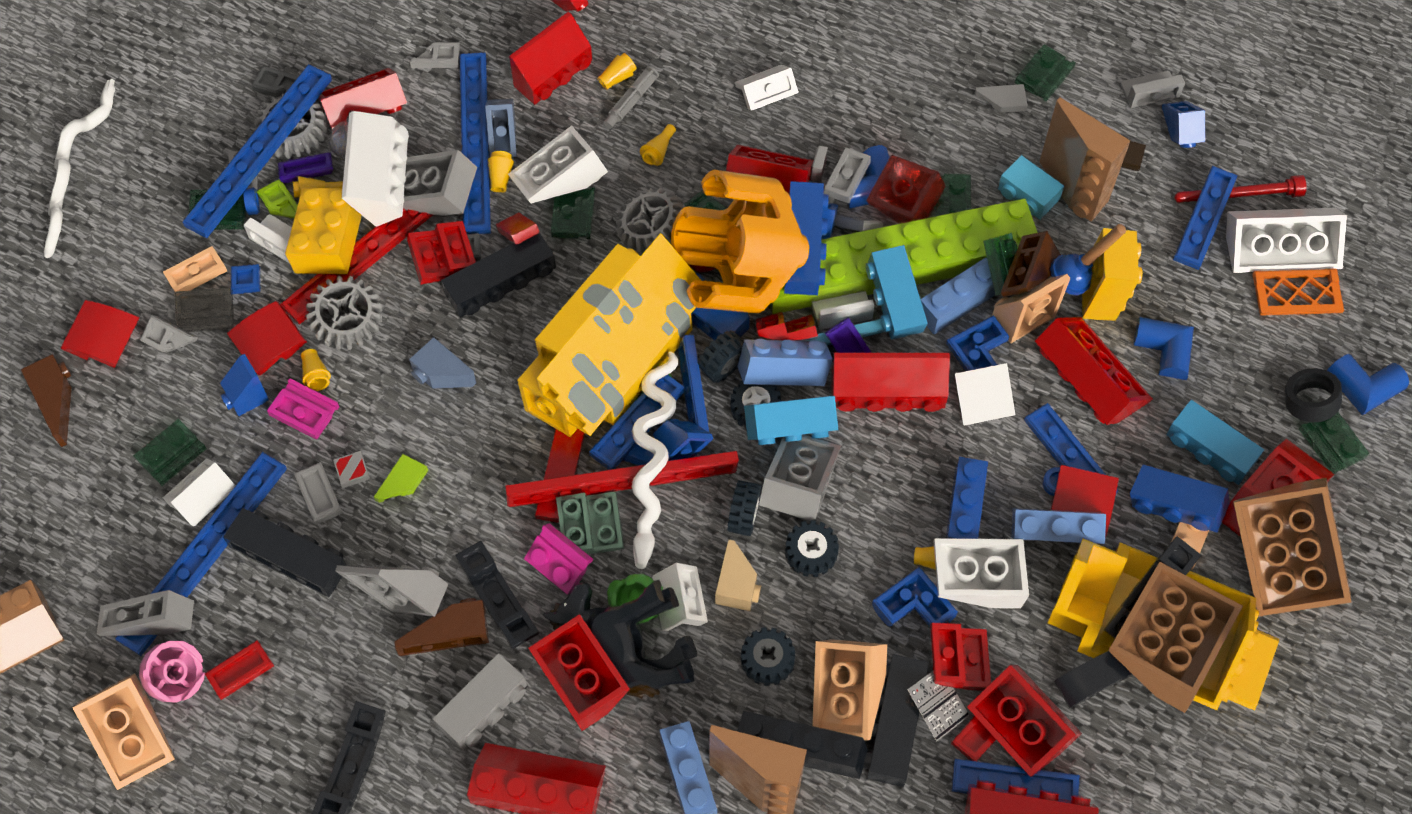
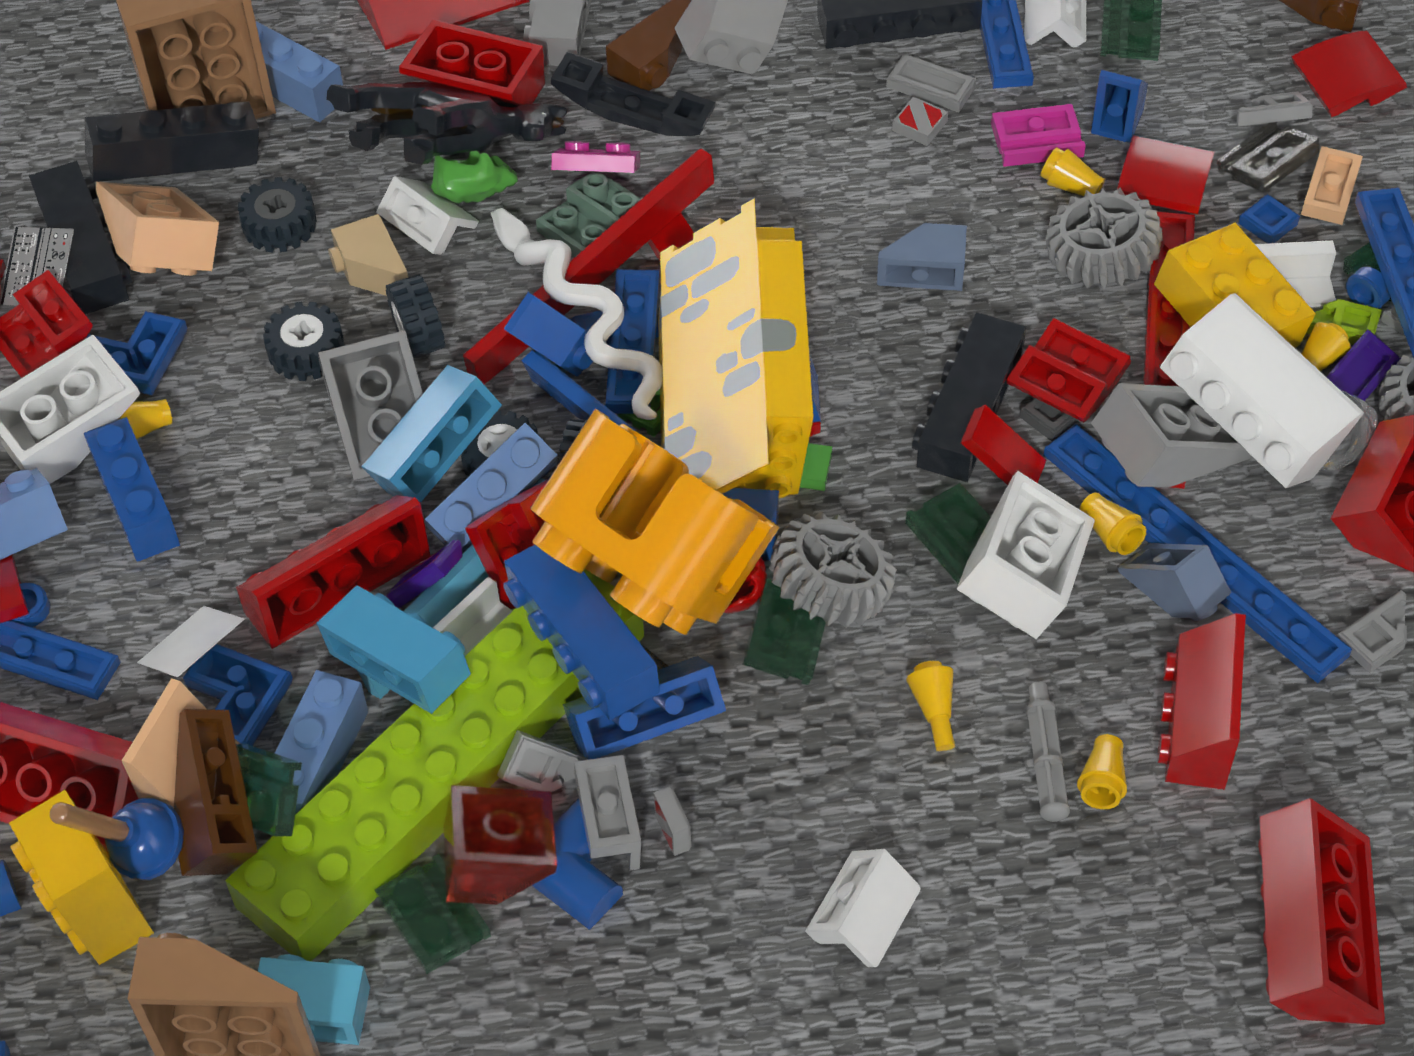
camera: 145 degrees right, 10 degrees down
(402, 479) = (854, 145): lime tile -> none
(769, 164) = (741, 762): red slope -> none

